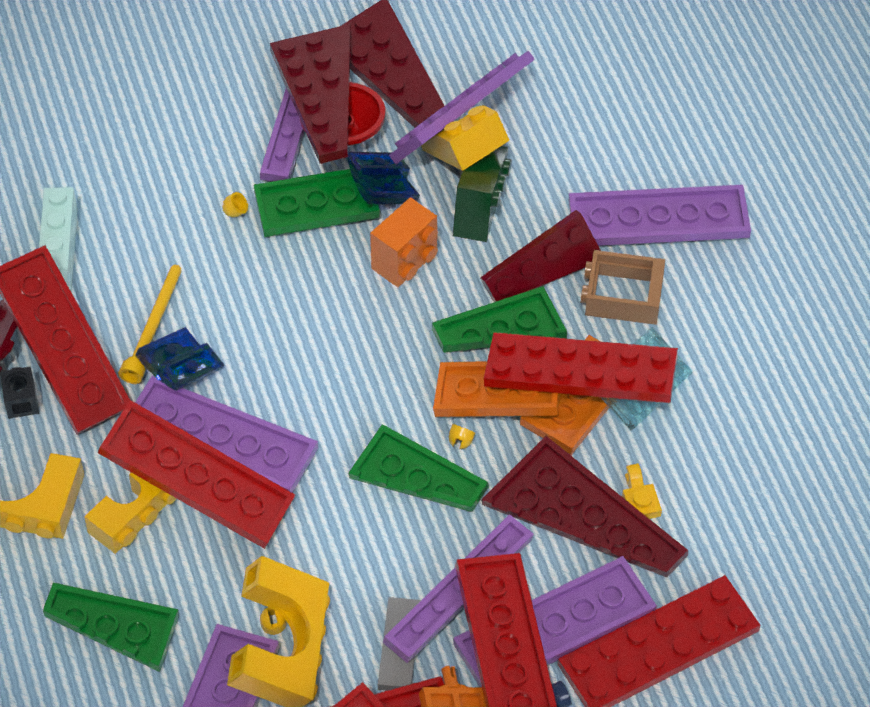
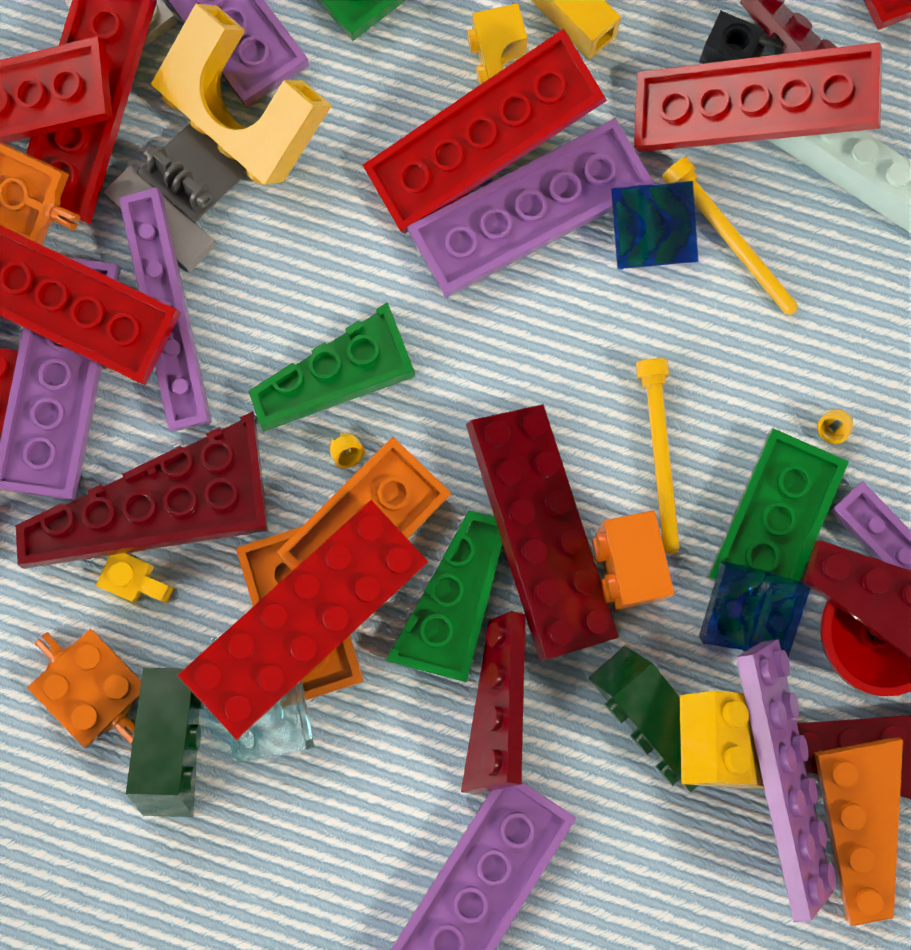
camera: 130 degrees right, 25 degrees up
(278, 309) = (653, 378): none -> yellow piece
(353, 642) = (191, 172): none -> dark grey hinge
(422, 305) = (541, 531): none -> dark red plate
(448, 76) = (862, 815): none -> orange wing
(629, 267) = (367, 807): medium nougat window -> none
(712, 403) = (164, 746): none -> dark green wedge
(722, 475) = (87, 688): none -> orange plate

